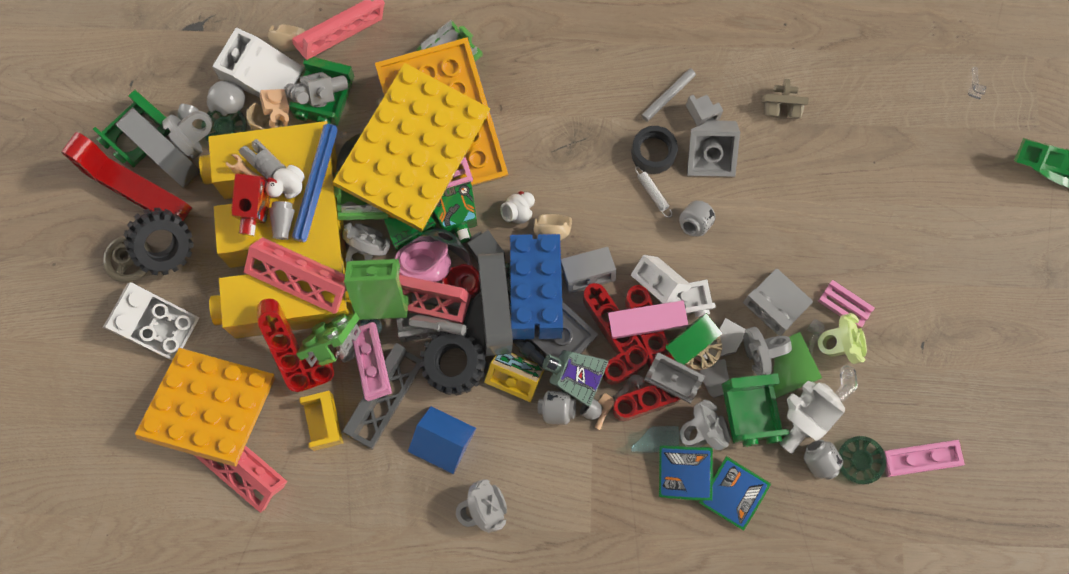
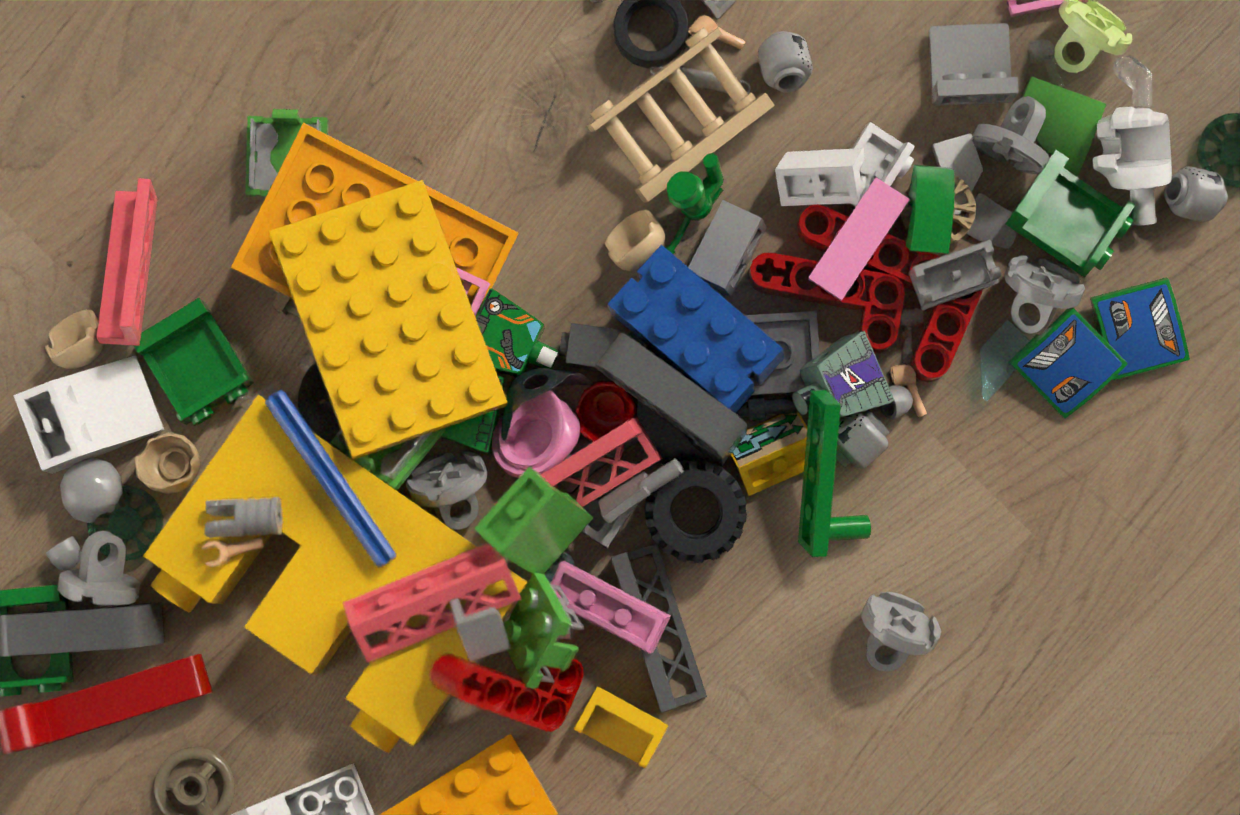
camera: 45 degrees left, 10 degrees up
(164, 260) = (192, 731): black tyre -> none
(250, 202) = (283, 563): red torso -> none
(276, 105) = (162, 435): light nougat plate -> none
(281, 219) = (343, 560): light grey cone -> none
(285, 181) = (302, 515): white animal -> none
(300, 305) = (480, 632): none -> light grey panel
(316, 89) = (189, 369): light grey piece -> none
(441, 439) = (771, 605): blue slope -> none
(497, 425) = (816, 523): none -> green piece
(518, 207) = (572, 260): white animal -> none
(595, 232) = (694, 195): none -> green piece
(636, 216) = (683, 153): none -> tan fence
(677, 172) = (709, 24): none -> light nougat hand

